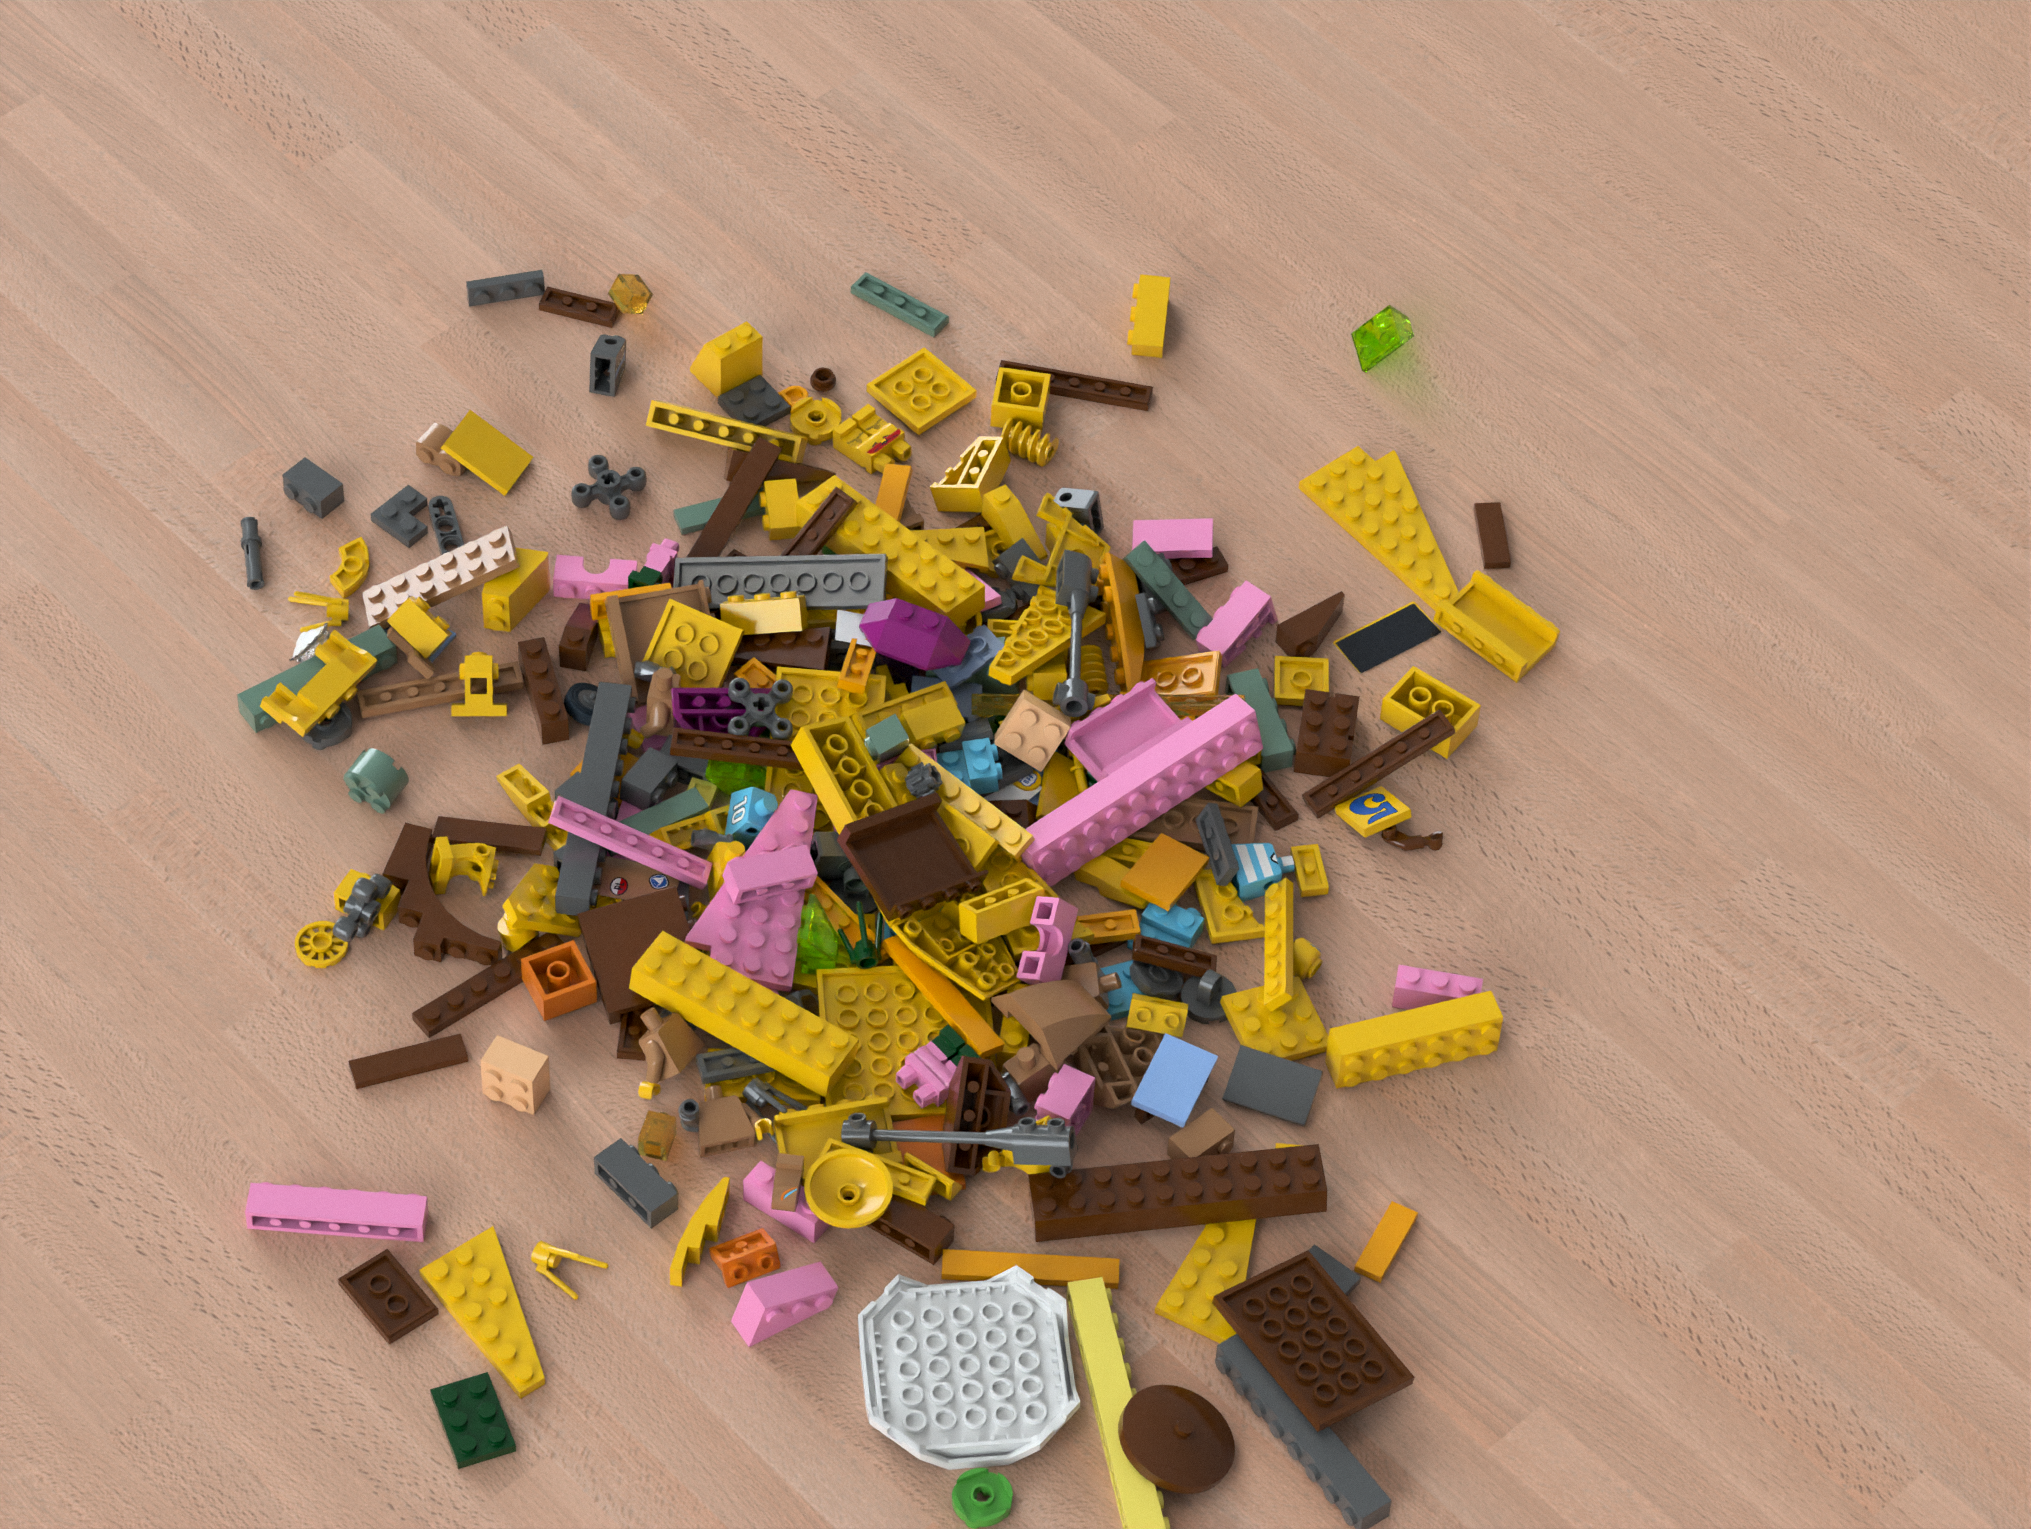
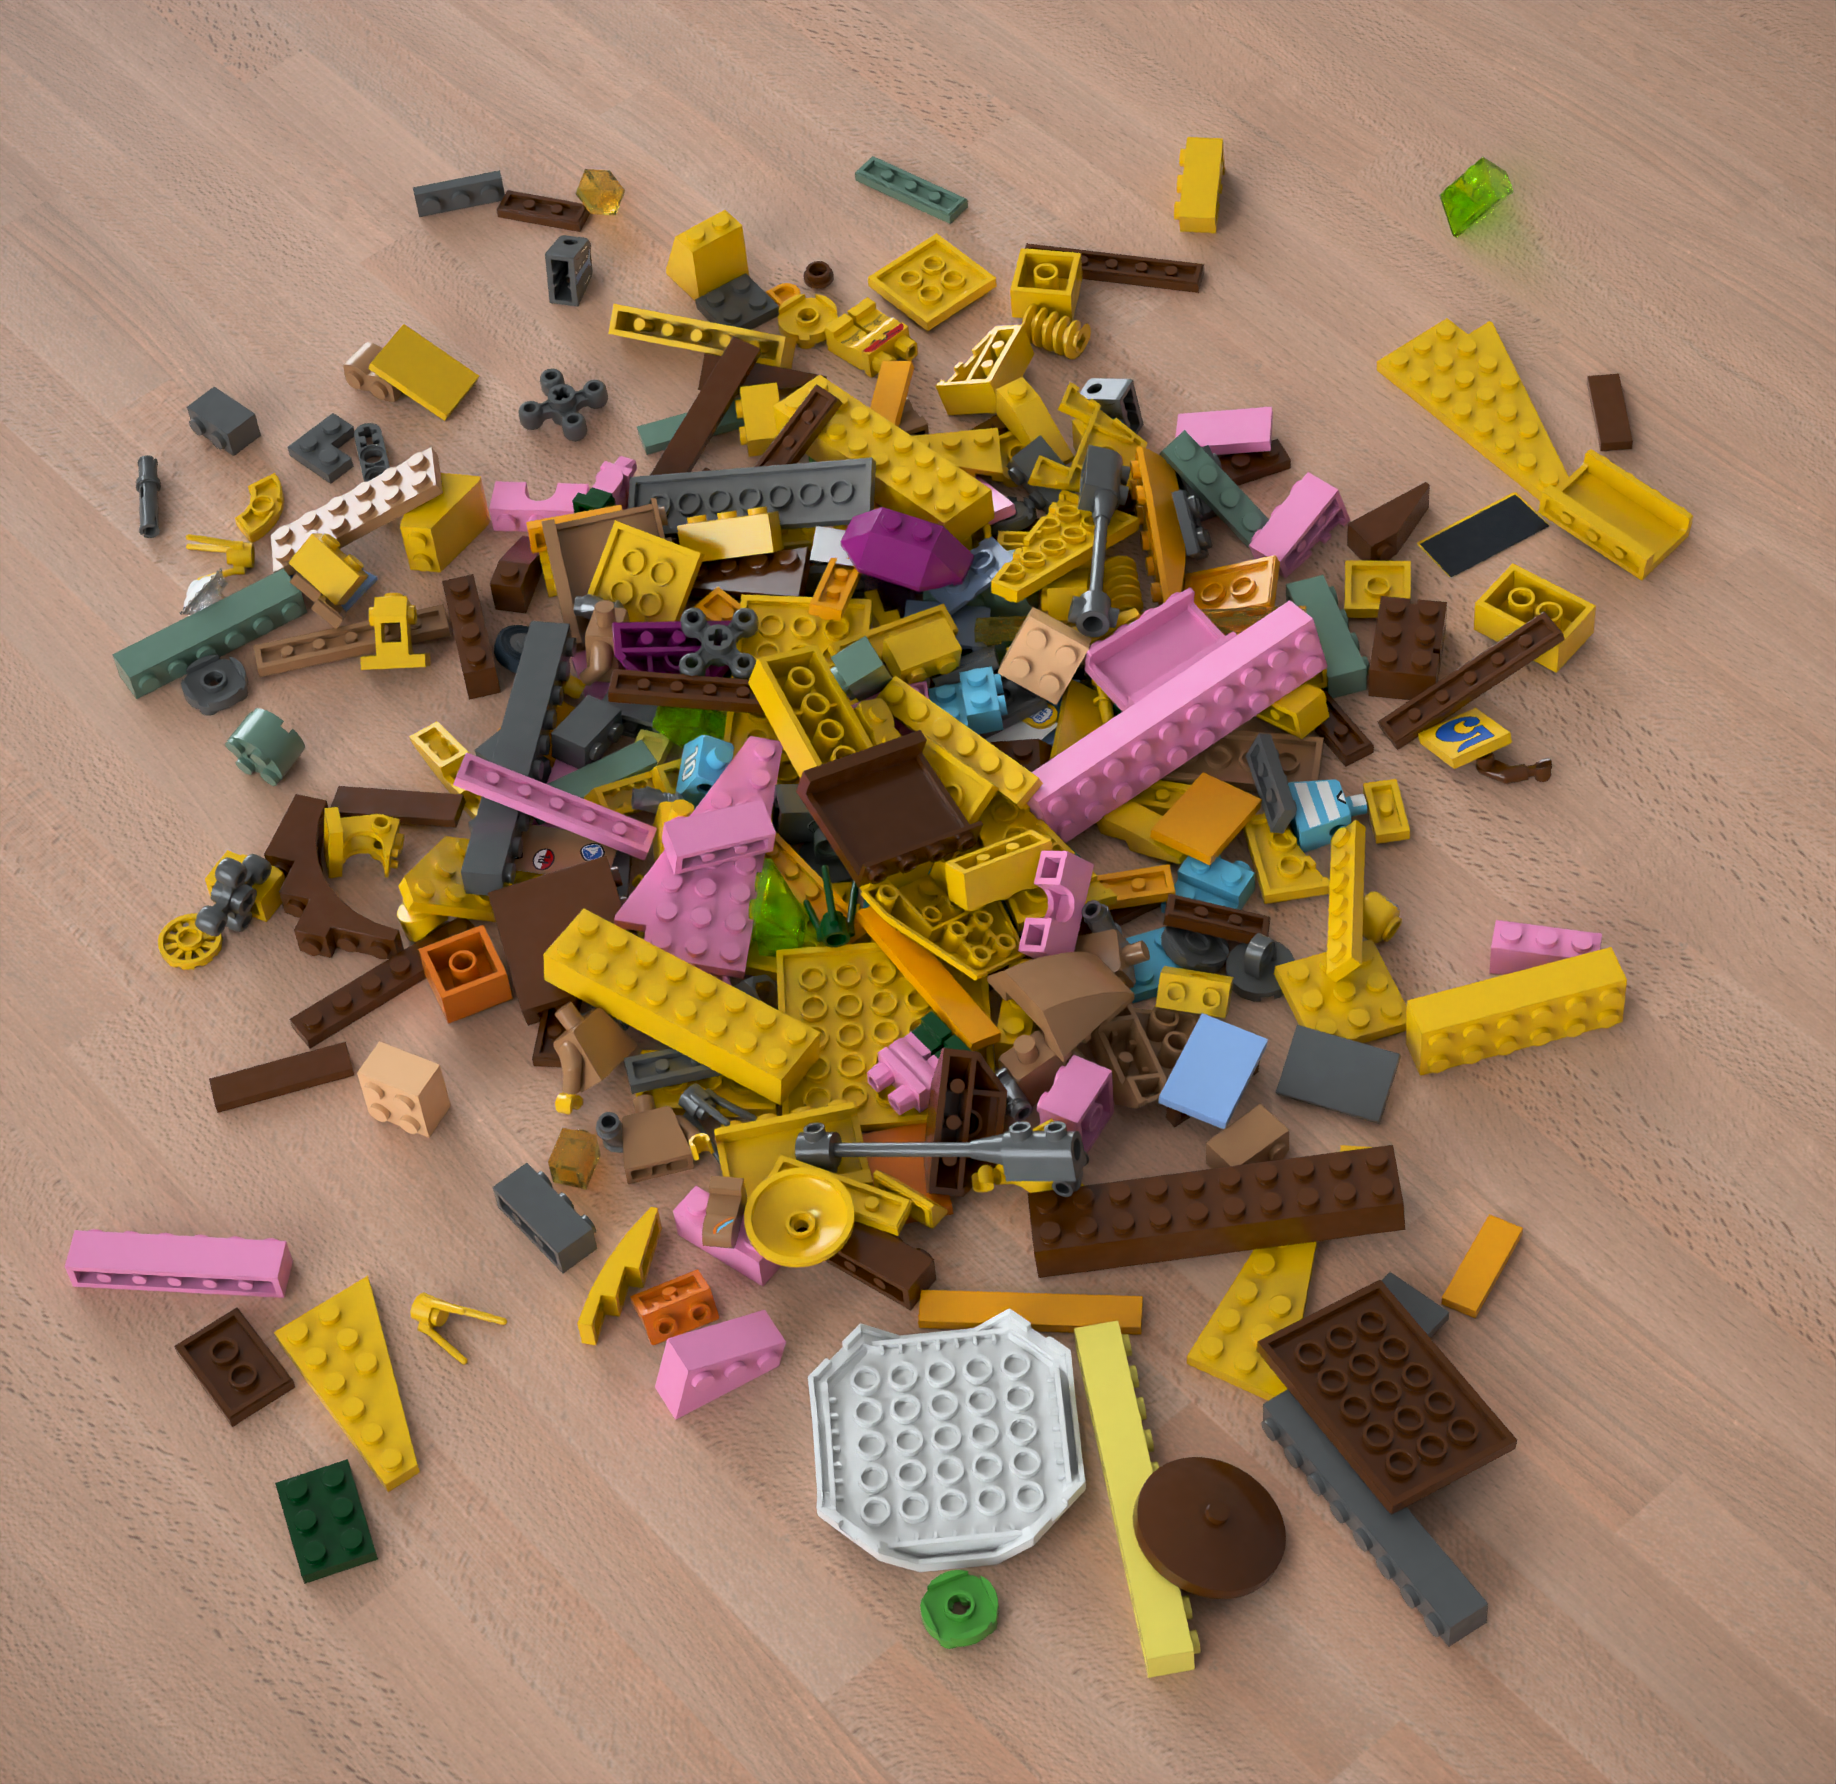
camera: 10 degrees right, 0 degrees up
(326, 690) = (212, 644): yellow bracket -> none
(923, 780) = (906, 716): dark grey gear -> none

